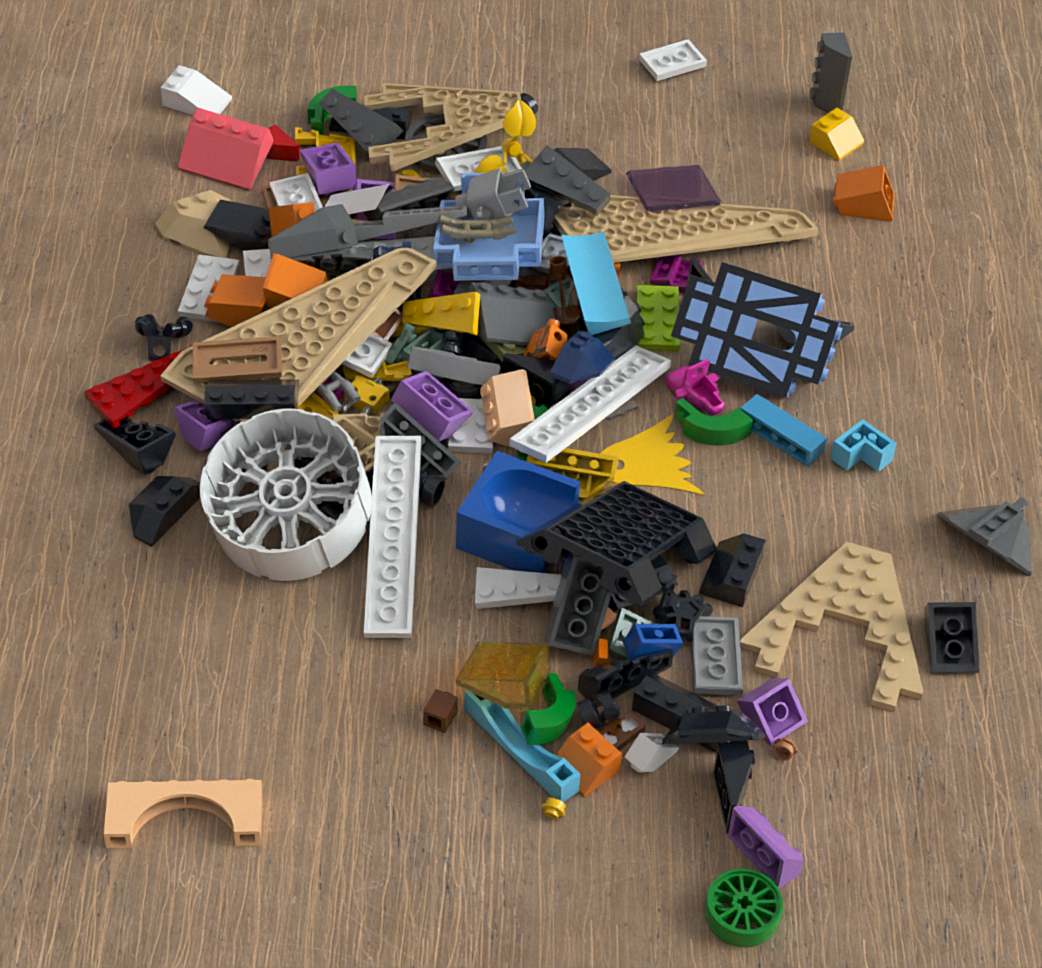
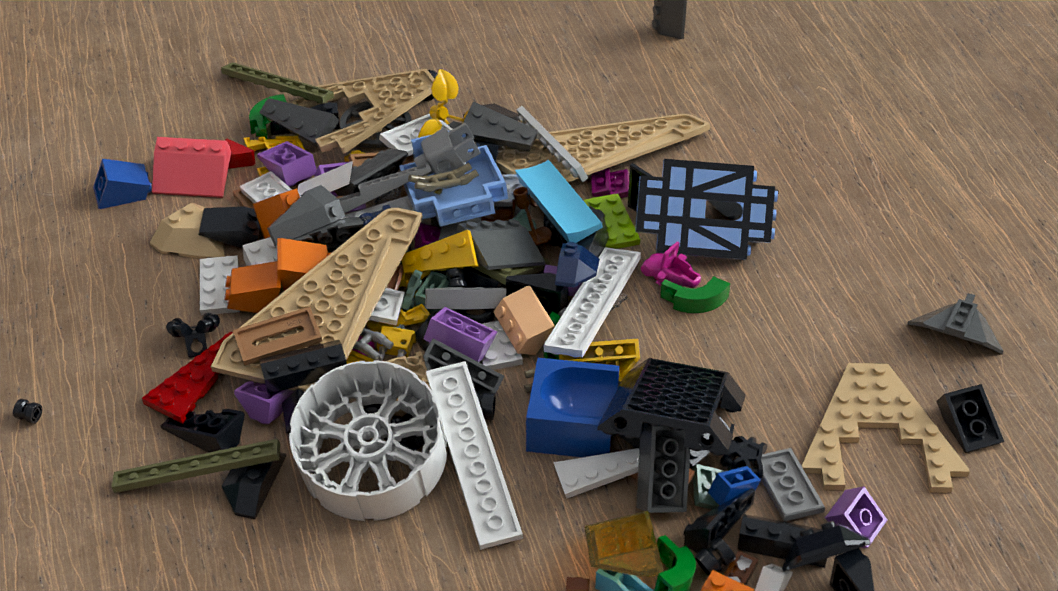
camera: 15 degrees left, 5 degrees down
(109, 476) = (196, 465): none -> olive plate
(147, 150) = (120, 183): none -> blue slope
(190, 89) = (141, 129): white slope -> none
(355, 71) = (277, 82): none -> olive plate
(547, 341) = (538, 259): orange torso -> none
(601, 652) = (693, 509): orange tile -> none
(622, 213) = (553, 145): none -> white plate
(651, 459) = (658, 335): yellow piece -> none
(672, 60) = (533, 22): white plate -> none
(673, 188) = (579, 118): clear purple piece -> none
(733, 569) = (768, 408): black slope -> none
(784, 430) = (757, 286): dark azure brick -> none
(784, 748) = (880, 548): nougat plate -> none
(836, 134) = (688, 50): yellow slope -> none
(864, 444) = (827, 281): medium azure brick -> none
(865, 194) = (732, 89): orange slope -> none

